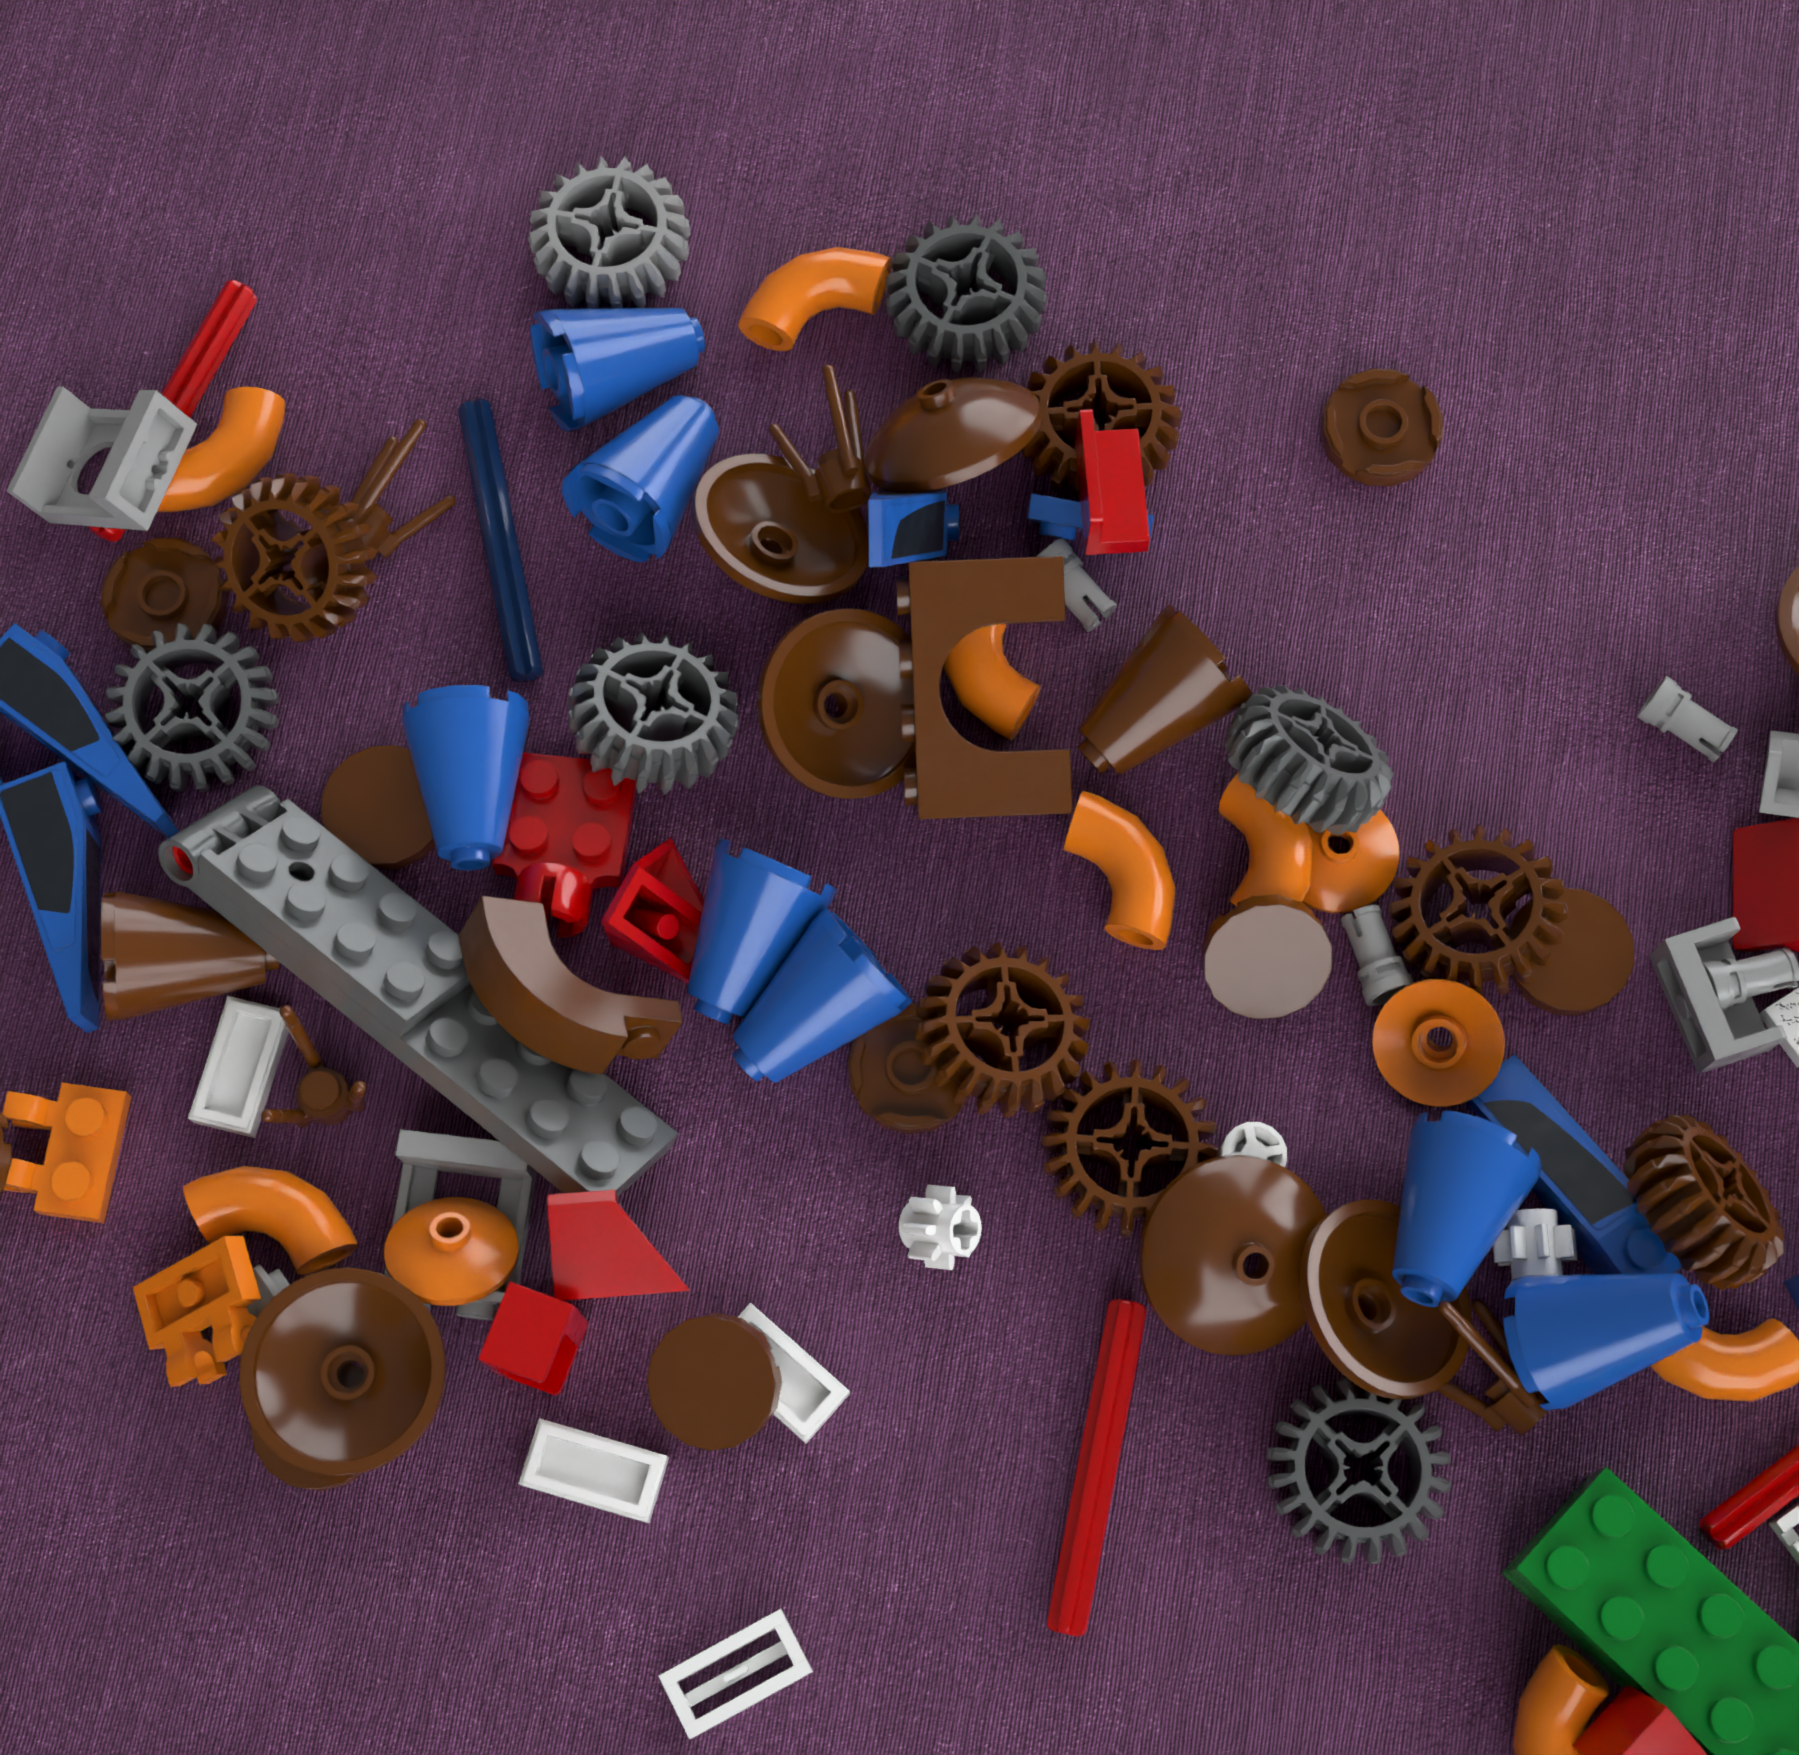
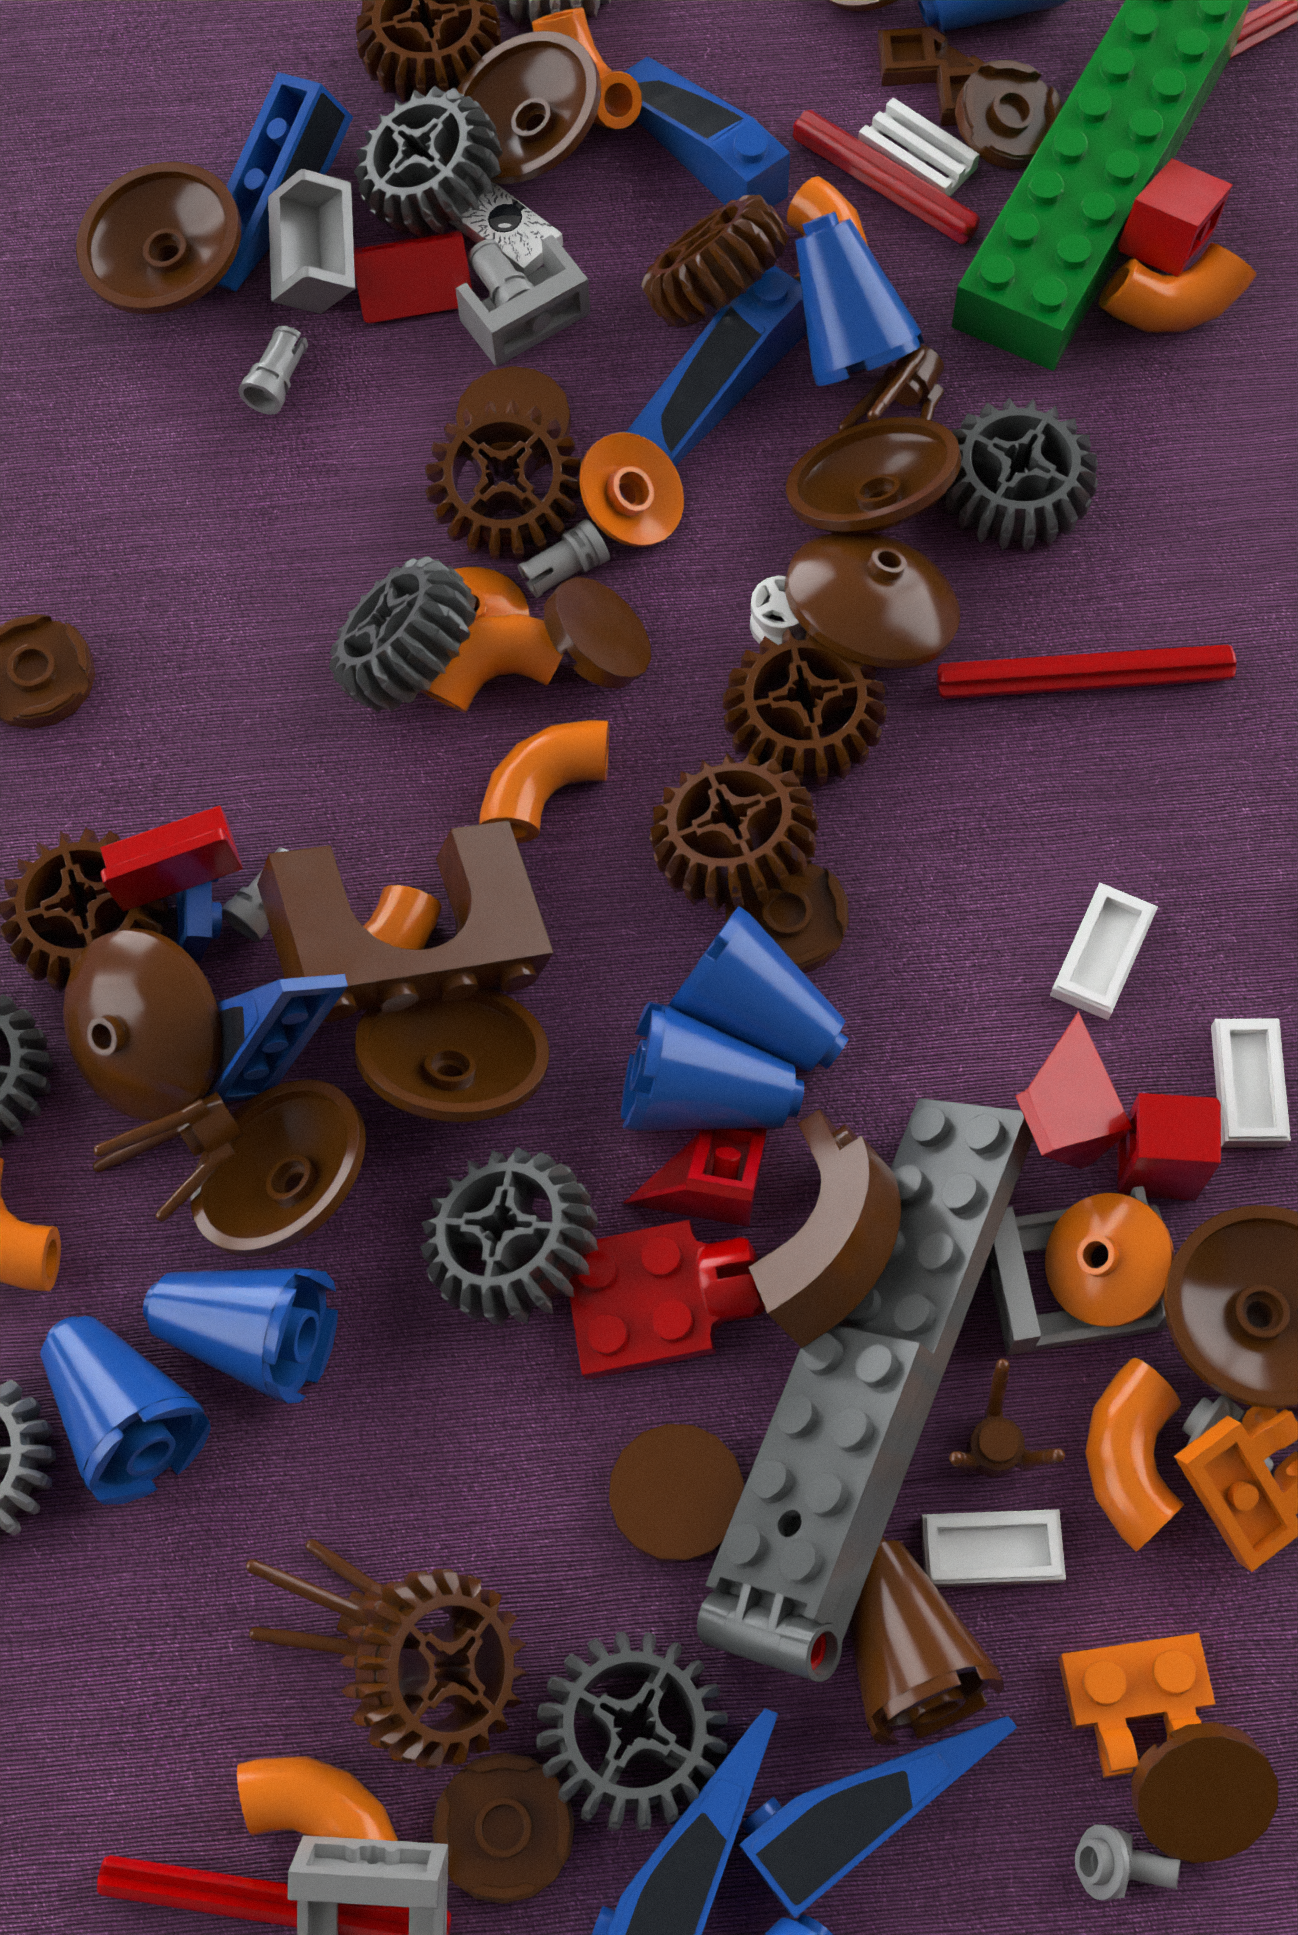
camera: 105 degrees left, 5 degrees down
(467, 767) = (631, 1394): blue cone -> none
(500, 541) = (344, 1472): dark blue axle -> none
(714, 1381) = (1137, 992): reddish brown tile -> none
(940, 1227) = (931, 840): white gear -> none
(1160, 696) = (367, 777): reddish brown cone -> none
(1455, 1202) = (779, 434): blue cone -> none
(1535, 1244) = (785, 384): white gear -> none

